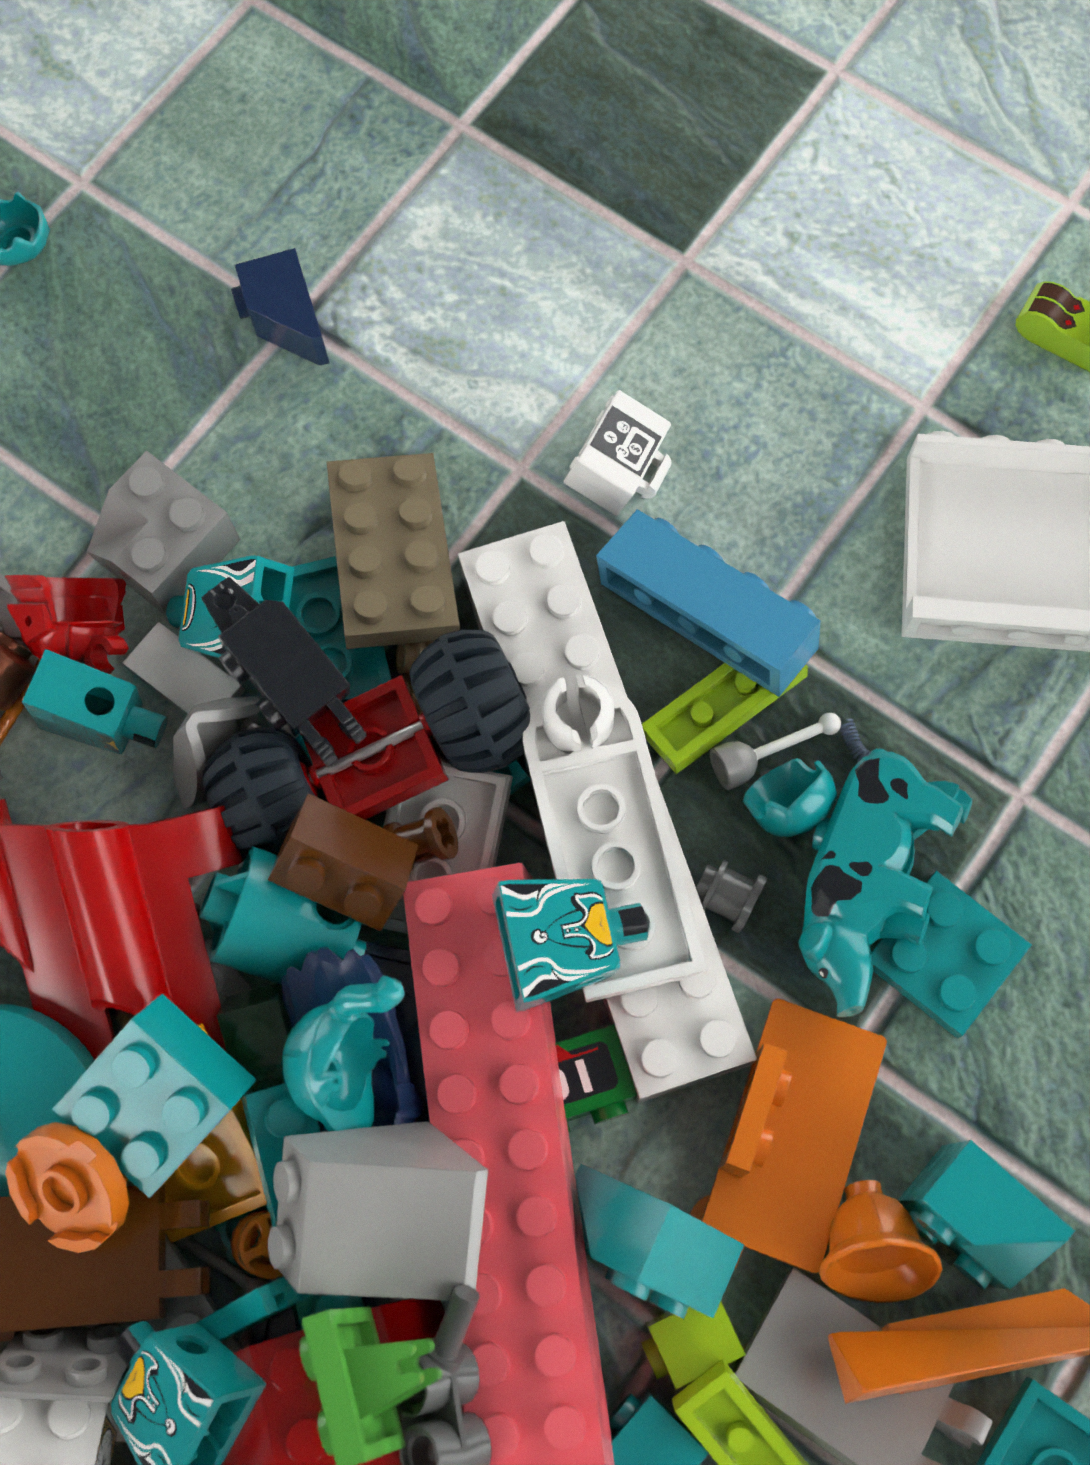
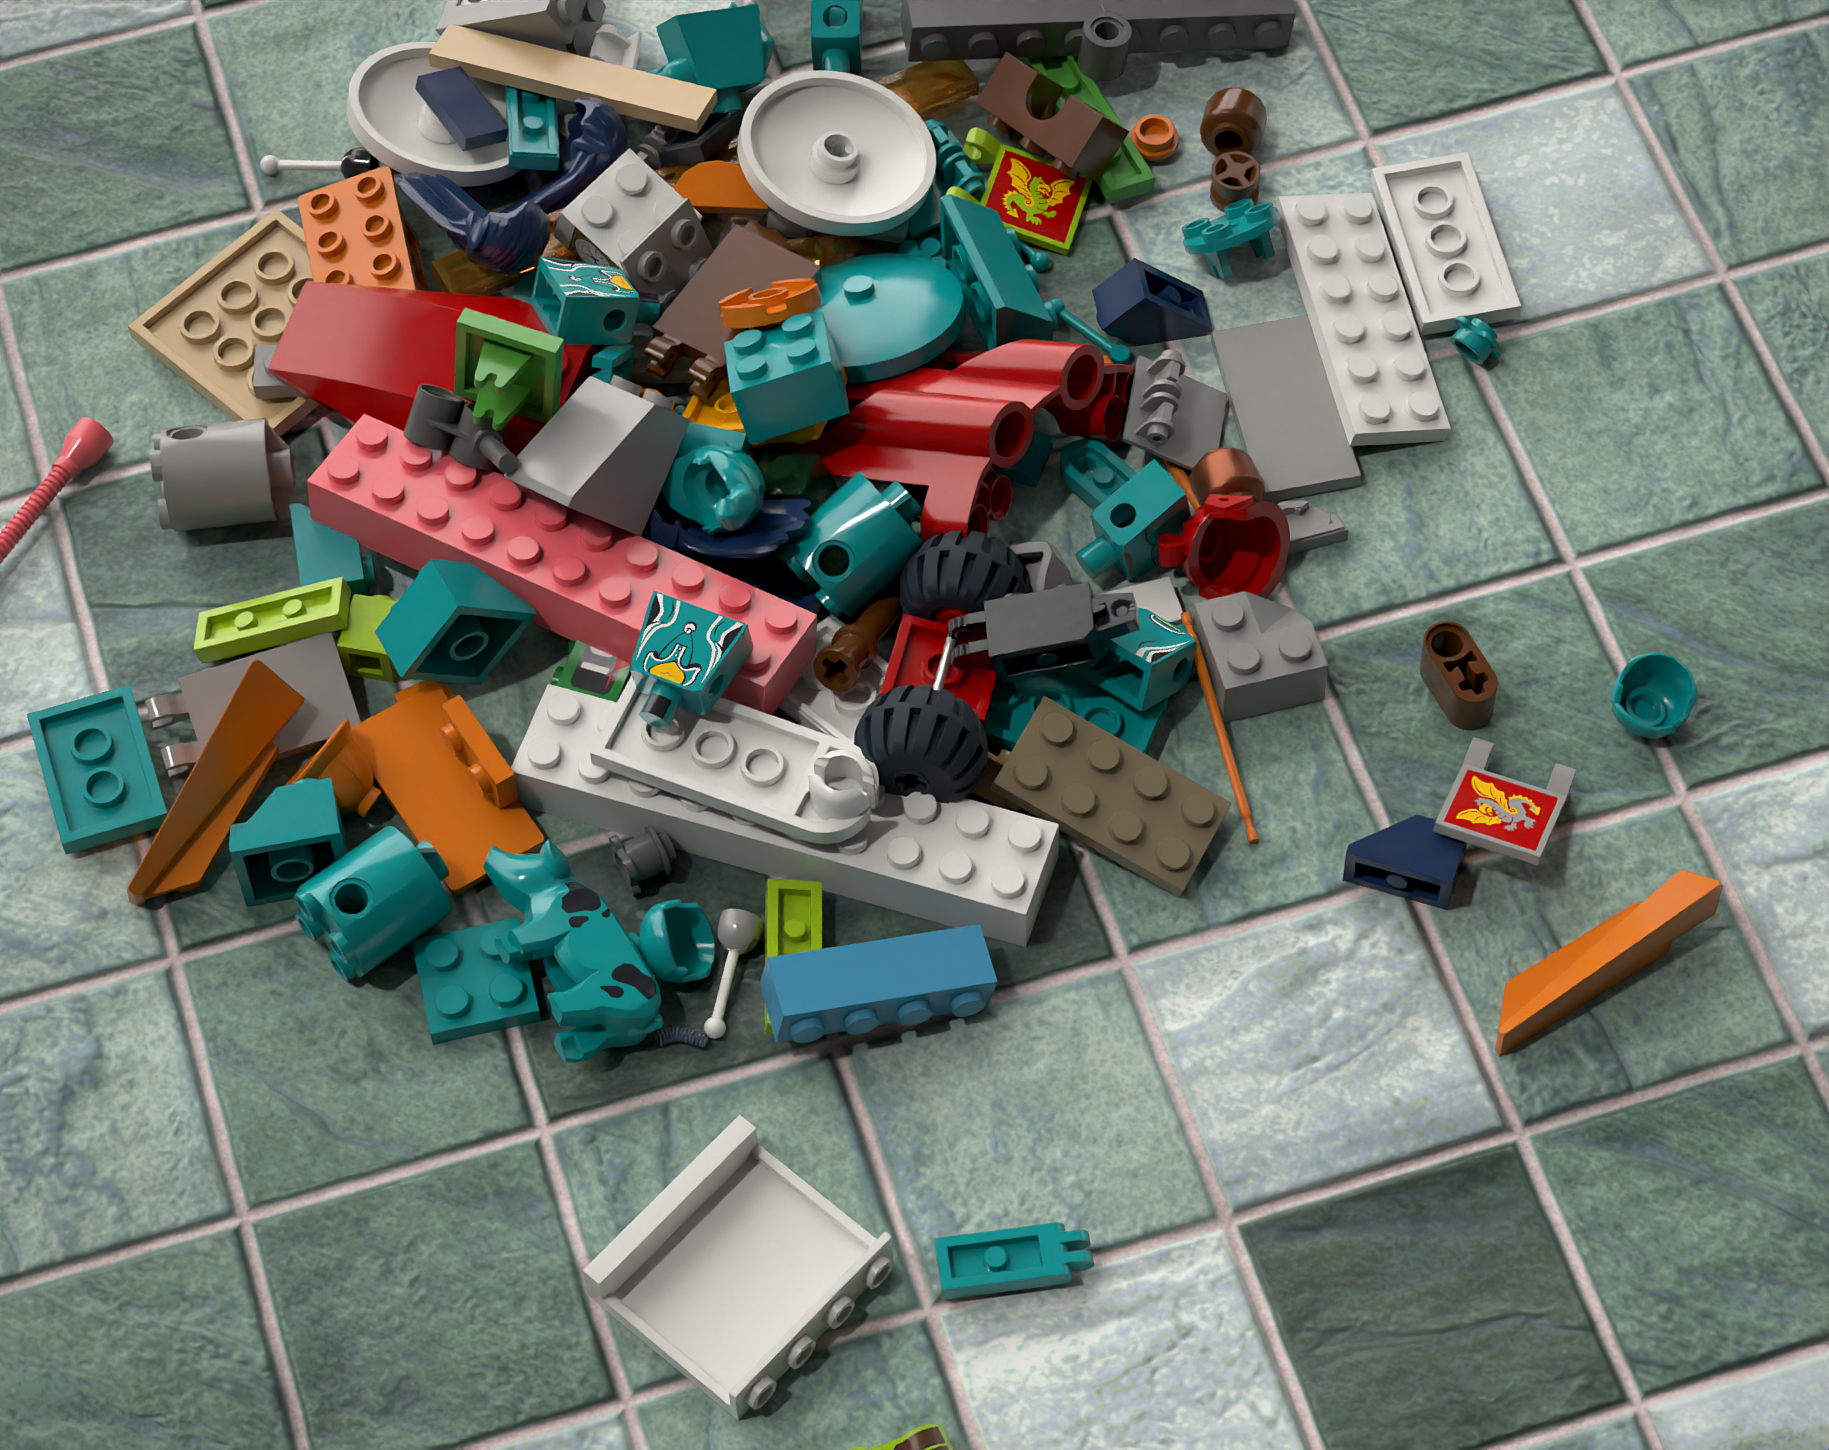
camera: 125 degrees right, 15 degrees down
(46, 788) = (1107, 475): none -> teal plate
(81, 367) = (1462, 683): none -> reddish brown beam
(194, 261) = (1501, 810): none -> flag
(258, 519) = (1221, 733): none -> orange piece
(274, 133) = (1603, 957): none -> orange wedge
(344, 862) = (856, 576): reddish brown brick -> none
(619, 455) = (1070, 1026): white piece -> none
(848, 365) = (1010, 1259): none -> teal hinge
(975, 1082) = (374, 901): none -> teal cylinder

